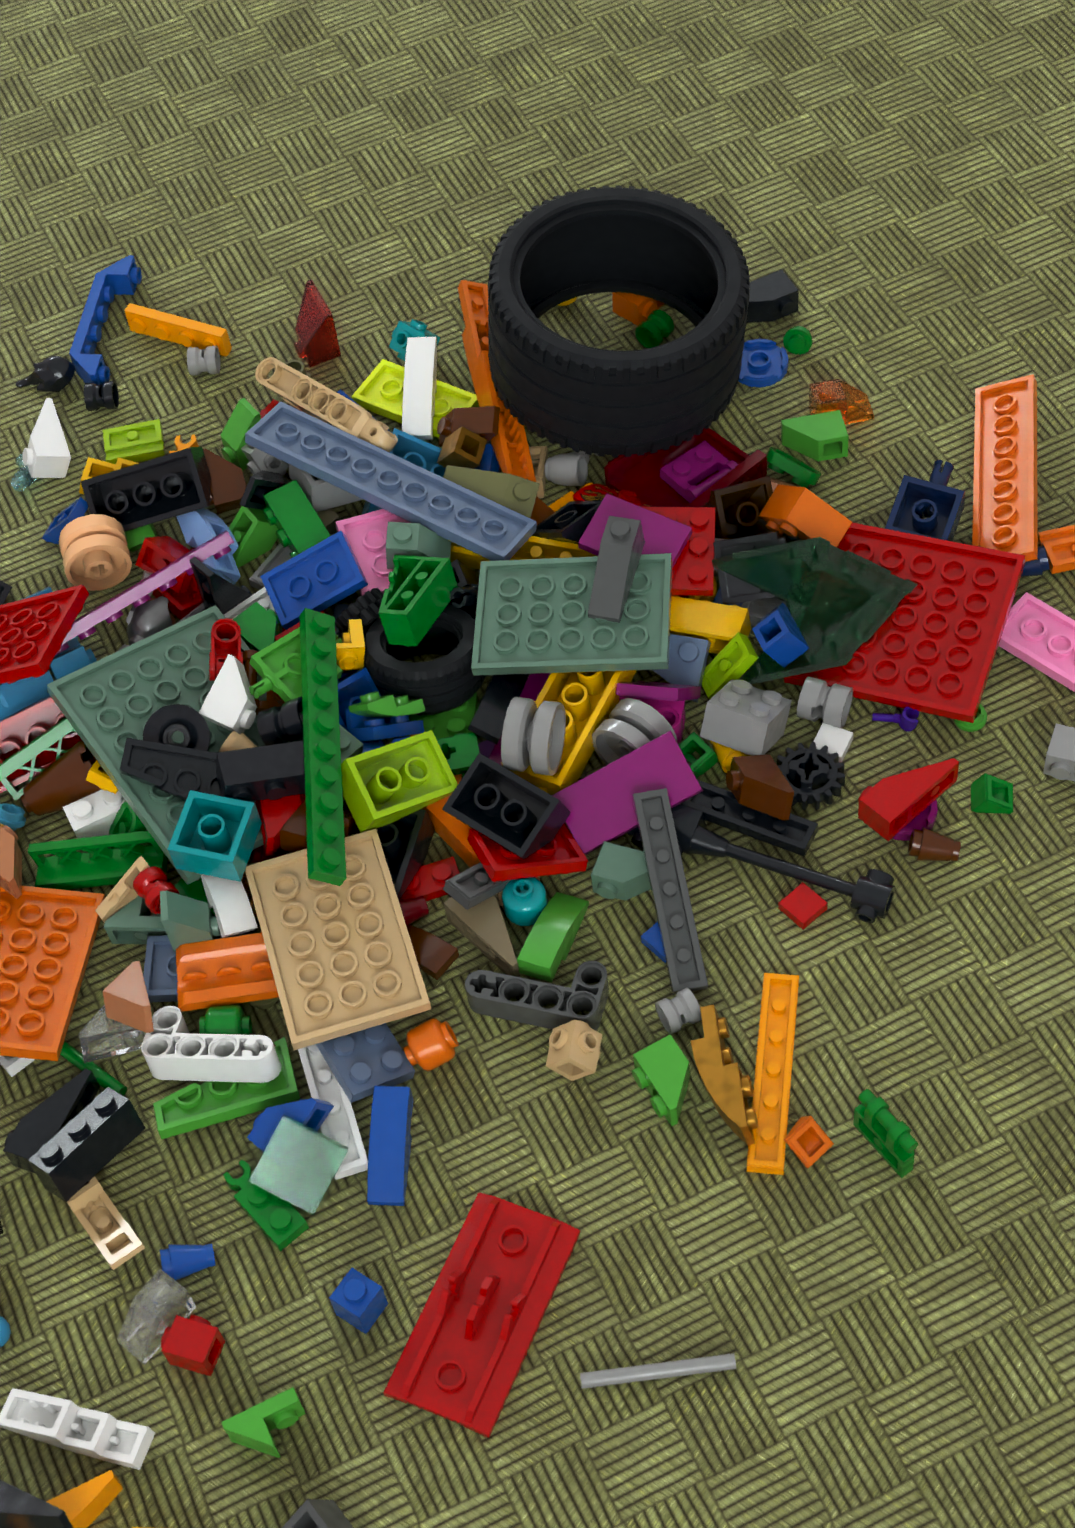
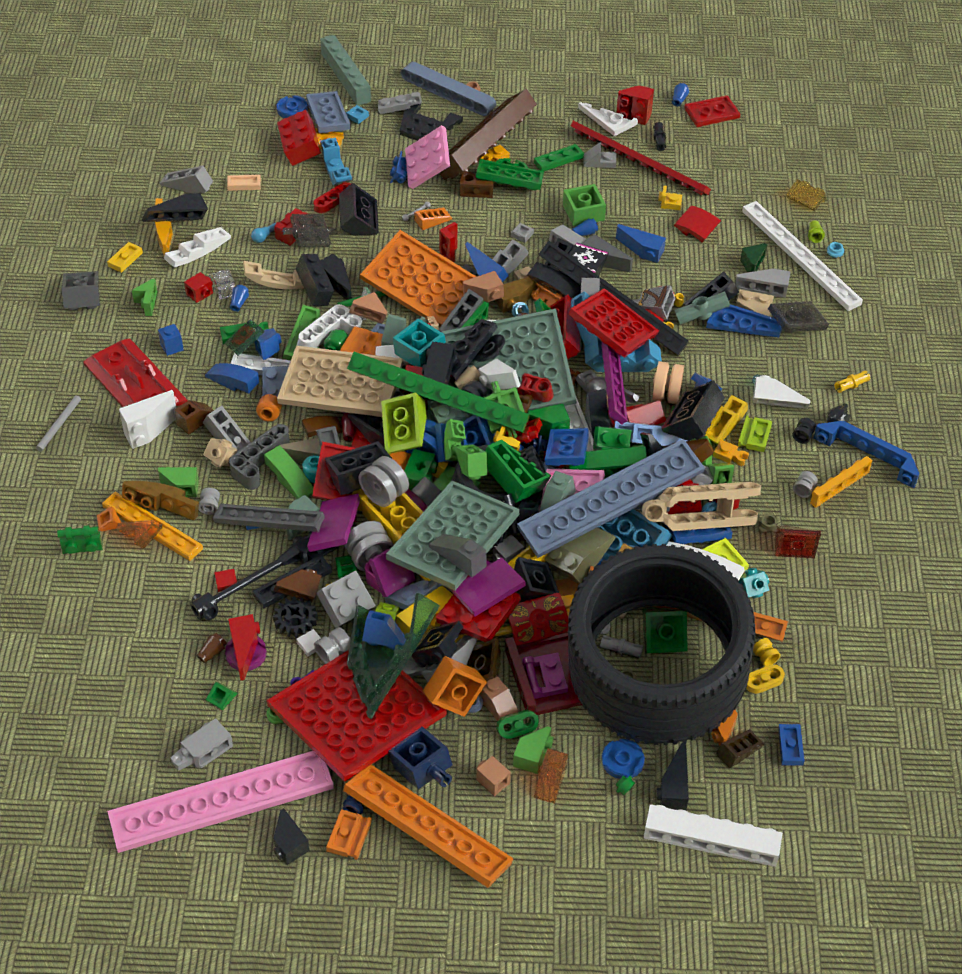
camera: 110 degrees right, 5 degrees down
(71, 865) = (463, 311): none -> dark grey slope
(258, 558) = (611, 438): none -> green bracket
(427, 647) = (472, 461): none -> bright green slope
(517, 1140) = (191, 415): none -> reddish brown slope
(520, 1073) = (224, 427): none -> light grey slope
(578, 1195) = (148, 418): none -> white slope
(802, 1055) = (142, 531): none -> clear orange slope
(804, 247) = (713, 835): none -> white brick
(883, 453) = (493, 775): none -> nougat brick

